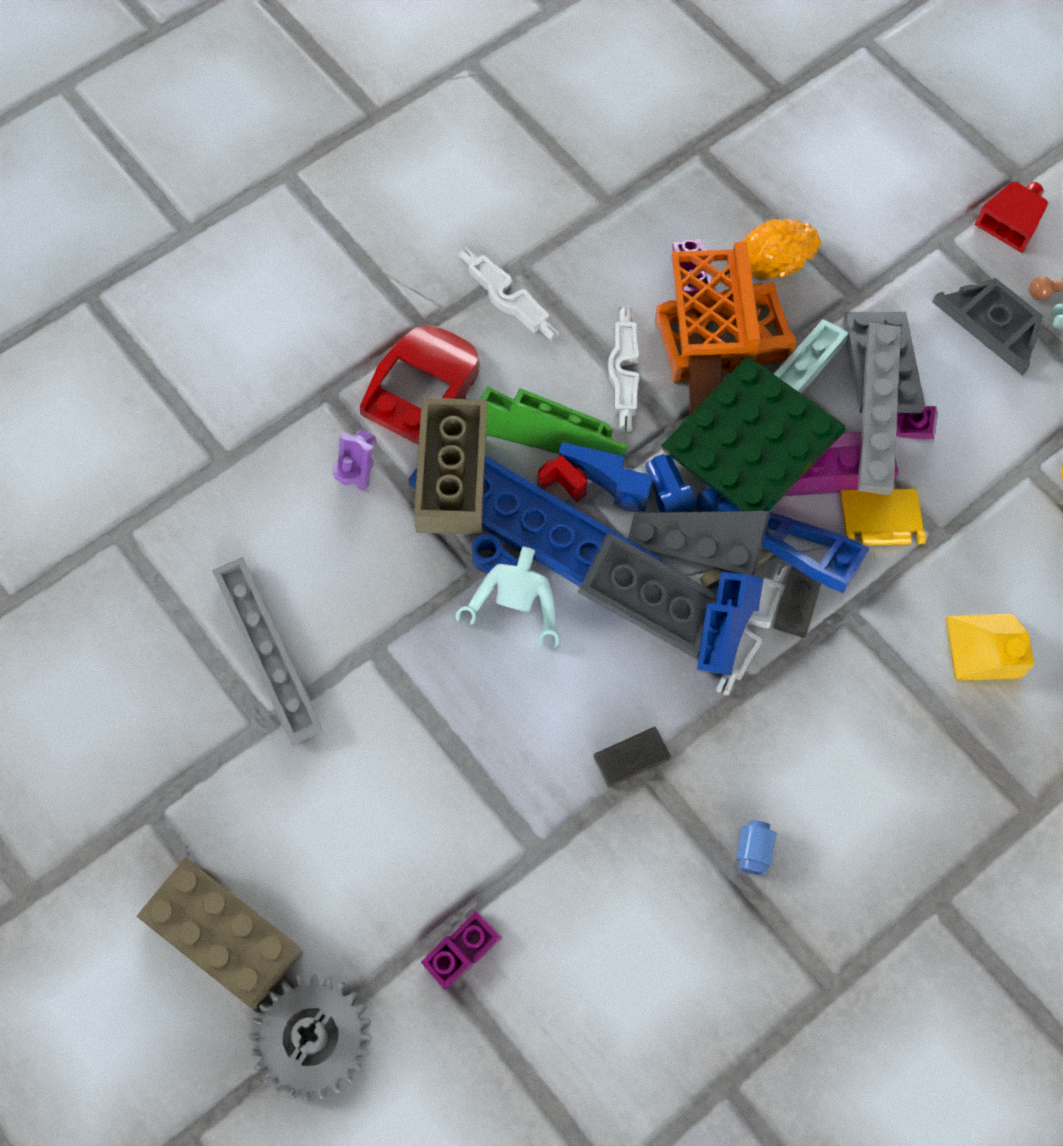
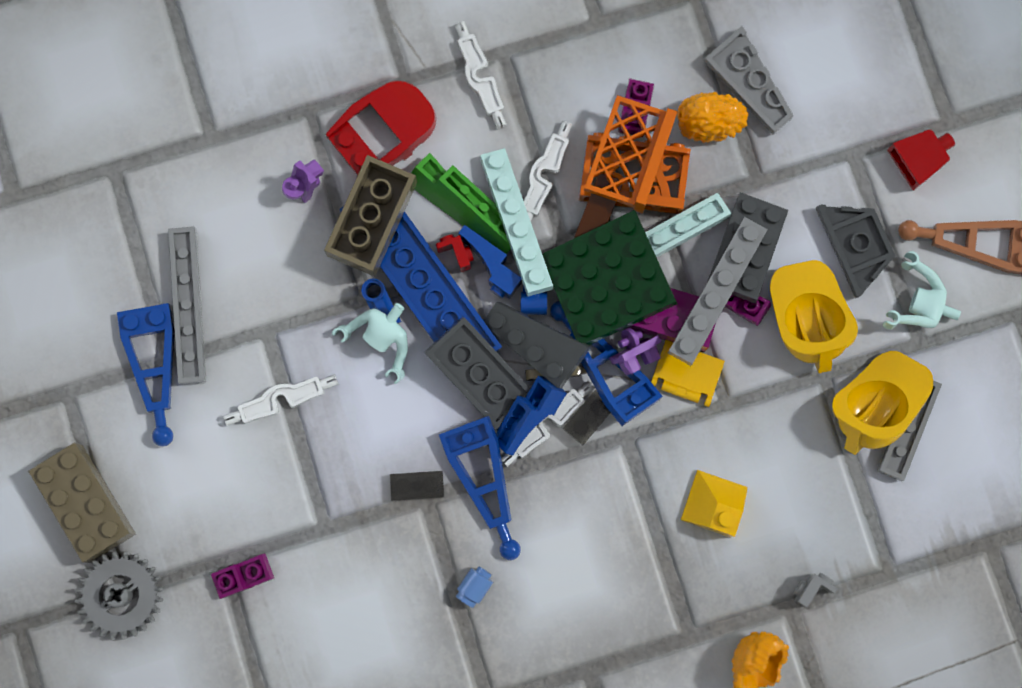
camera: 20 degrees right, 15 degrees up
(219, 691) = (147, 322): none -> blue plate
(410, 730) = (267, 404): none -> white piece
(619, 422) = (516, 222): none -> light aqua plate
(670, 676) = (467, 439): none -> blue plate
(787, 197) = (744, 74): none -> light grey wing
(819, 509) = (646, 348): none -> medium lavender hips
(991, 402) = (812, 313): none -> yellow piece

